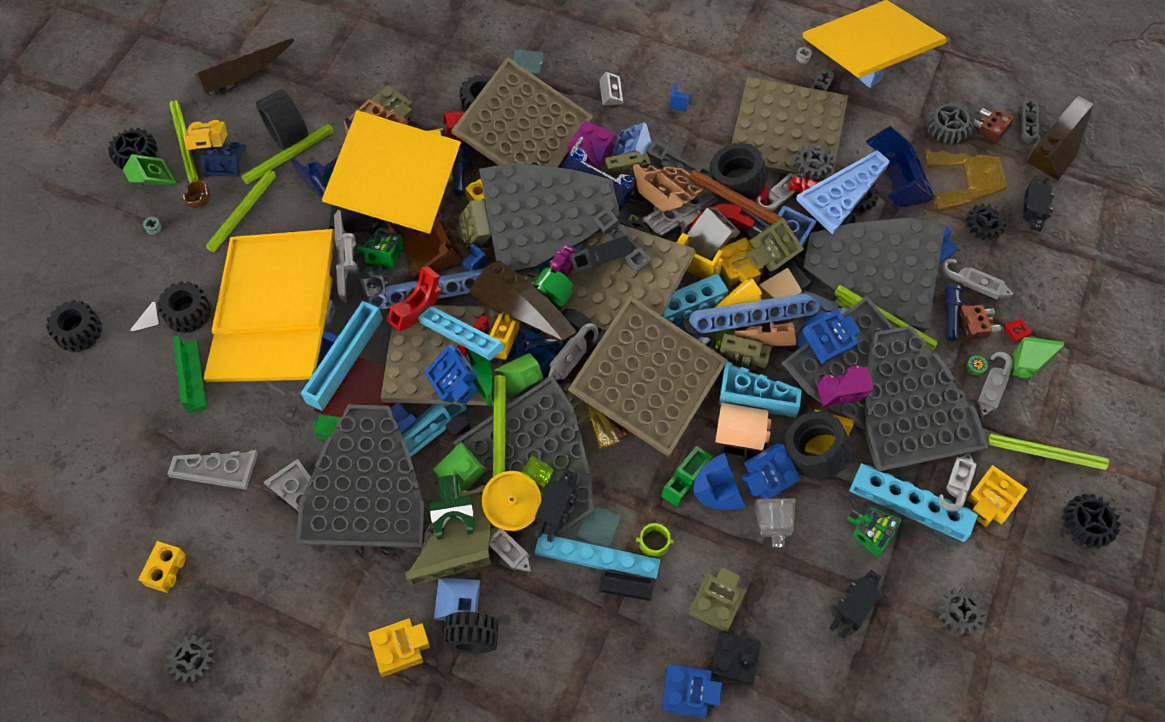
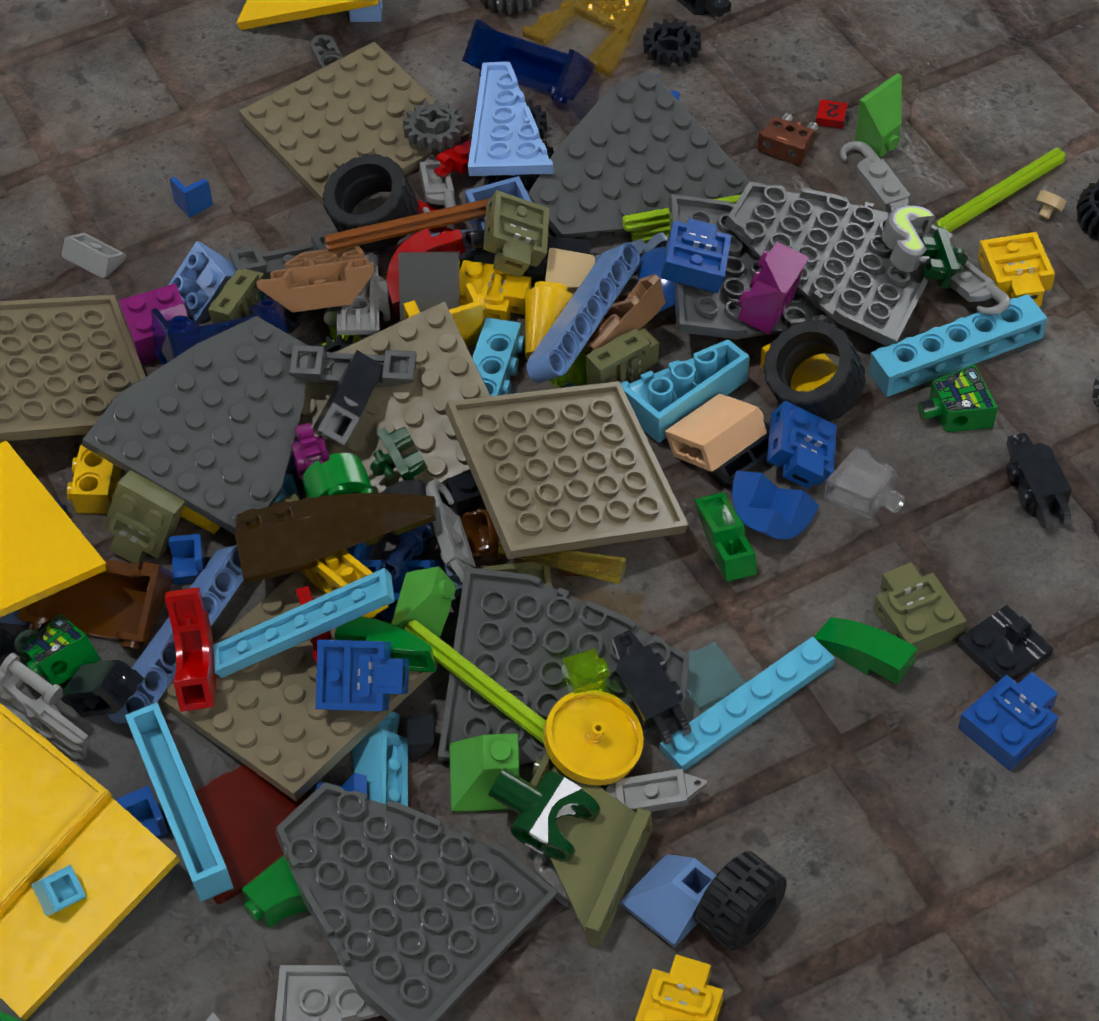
camera: 50 degrees left, 10 degrees down
(262, 345) = (58, 890): none -> medium azure slope
(589, 298) = (395, 443): none -> dark green hips
(626, 585) = (815, 695): black piece -> none
(658, 528) = (782, 607): lime piece -> none
(673, 590) = (867, 648): none -> green slope
(803, 58) = (267, 44): light grey bush -> none
(951, 423) = (903, 235): none -> light grey animal
(953, 305) = (747, 143): dark blue pin -> none
(960, 455) = (944, 258): none -> dark green hips
(977, 281) = (739, 101): light grey plate -> none
(977, 365) = (840, 176): tile -> none
(1062, 482) = (1050, 202): none -> tan tile

